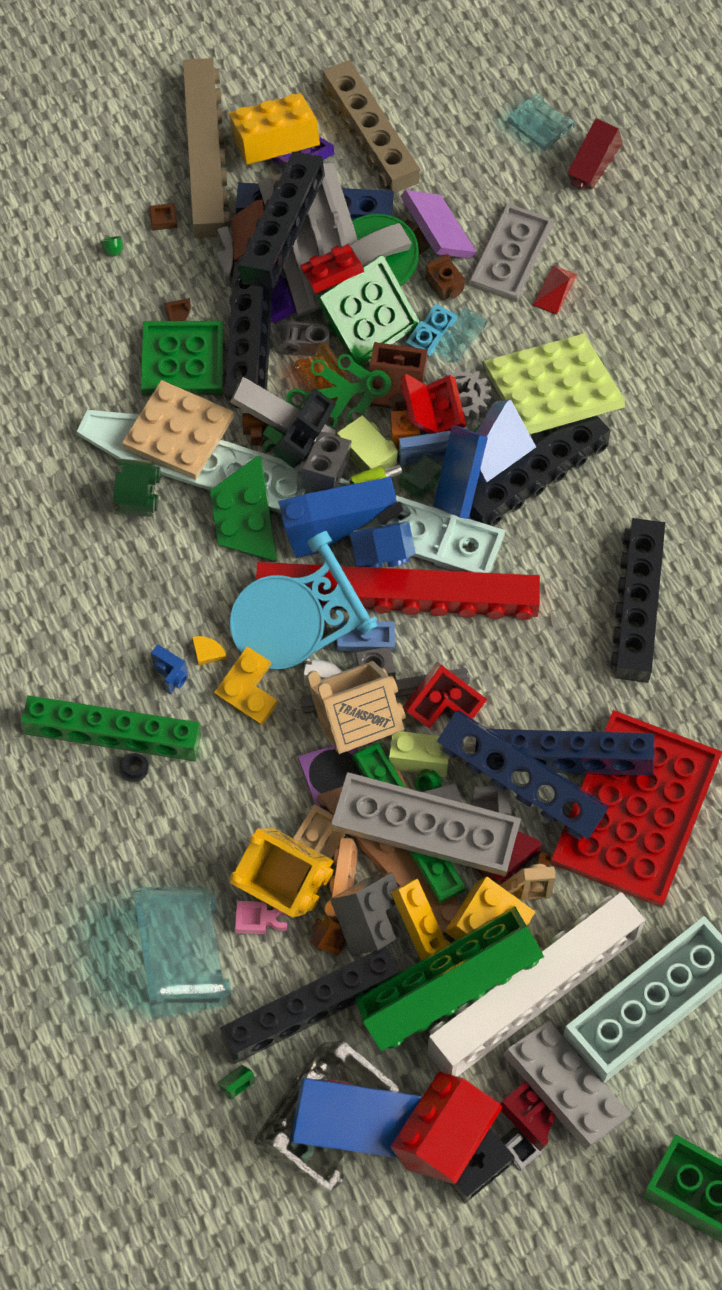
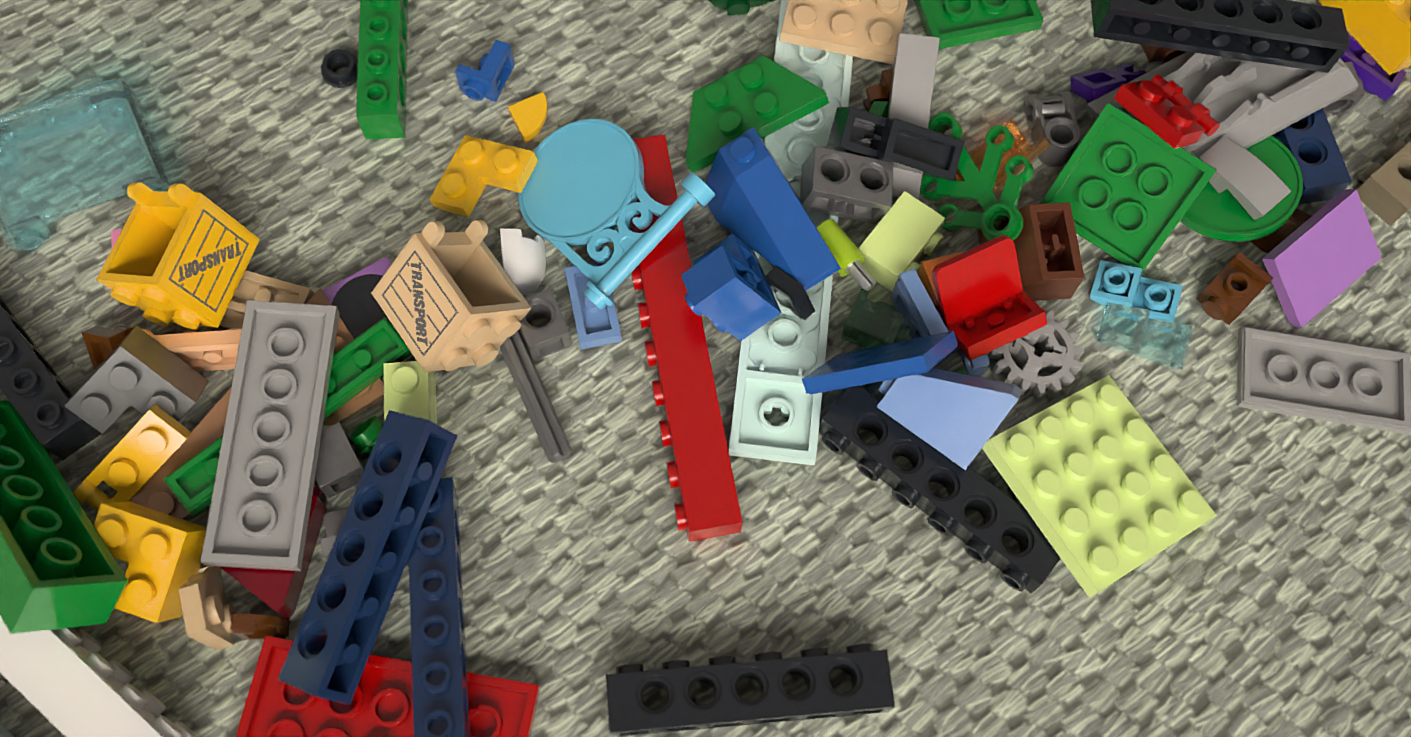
camera: 75 degrees right, 5 degrees up
(248, 334) = (1030, 57): black brick -> none
(439, 690) = (508, 423): red brick -> none
(554, 289) = (1283, 458): red slope -> none

